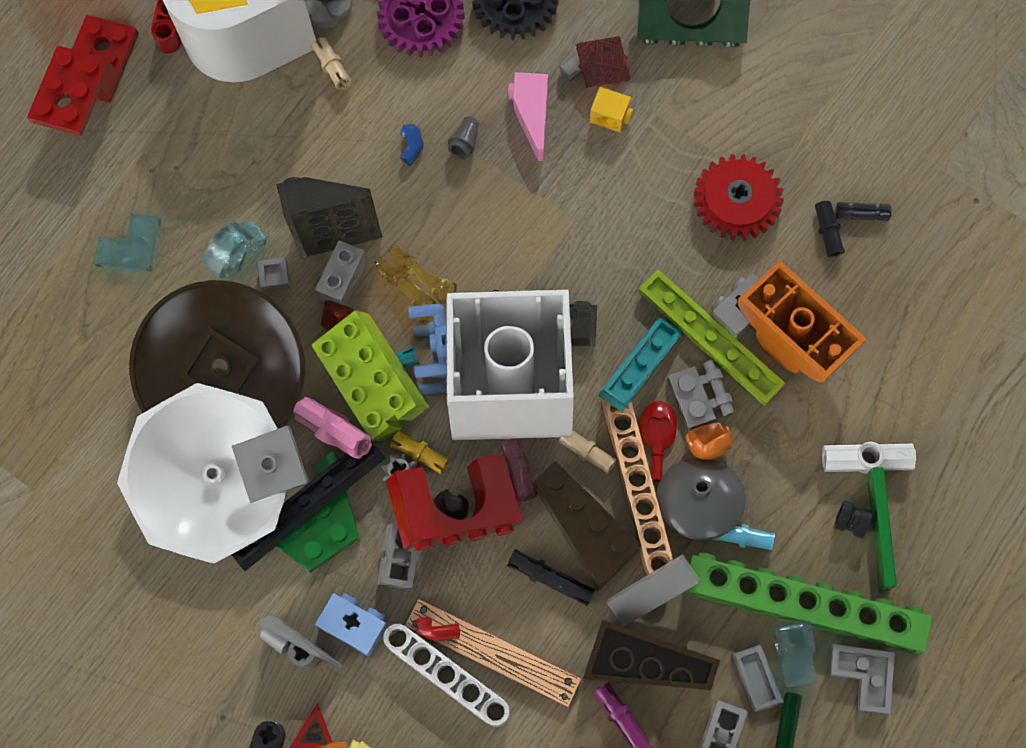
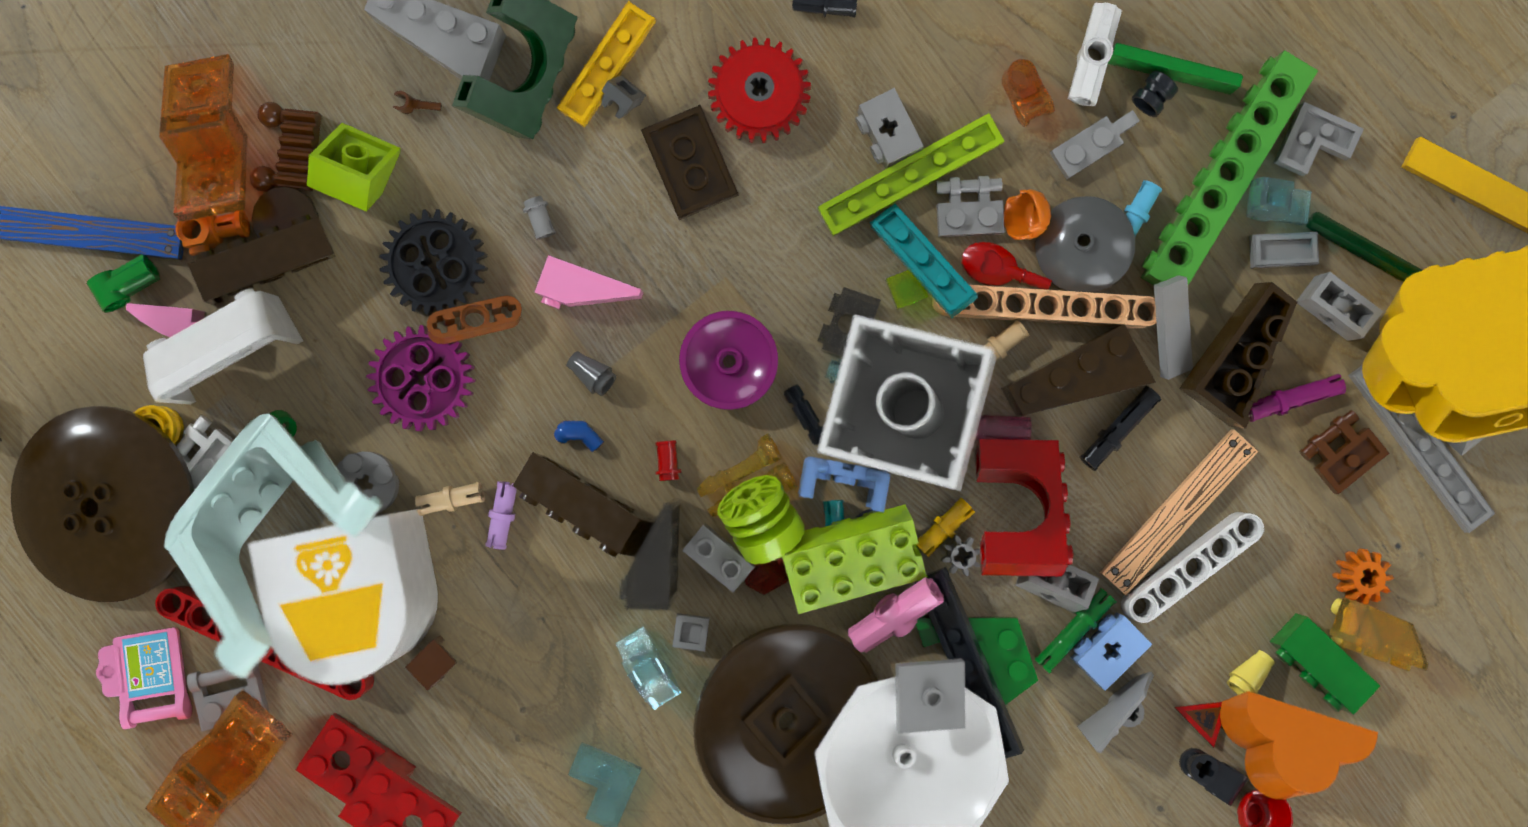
camera: 75 degrees left, 15 degrees up
(195, 84) = (431, 664): none -> reddish brown panel
(329, 104) = (501, 515): none -> lavender pin
(357, 145) = (582, 506): none -> dark brown wedge
(361, 590) = (1075, 630): none -> green pin
(381, 290) = (761, 519): none -> lime wheel
(410, 215) = (667, 461): none -> red pin
(436, 633) = (1149, 564): red arm -> none
(452, 506) = (1017, 512): black piece -> none
(476, 49) = (448, 317): none -> dark orange beam
(503, 218) = (722, 336): none -> magenta dish
(603, 61) = (547, 187): clear red piece -> none
(611, 110) = (610, 196): yellow brick -> none
(611, 359) = (905, 289): none -> clear neon green plate
(660, 164) = (689, 162): none -> dark brown tile
(697, 95) = (622, 93): none -> dark grey tile
(718, 79) = (606, 63): none -> yellow tile
(791, 481) = (1092, 144): none -> light grey plate
(798, 325) = (945, 73): orange brick -> none
(811, 413) = (1028, 94): none -> clear orange piece

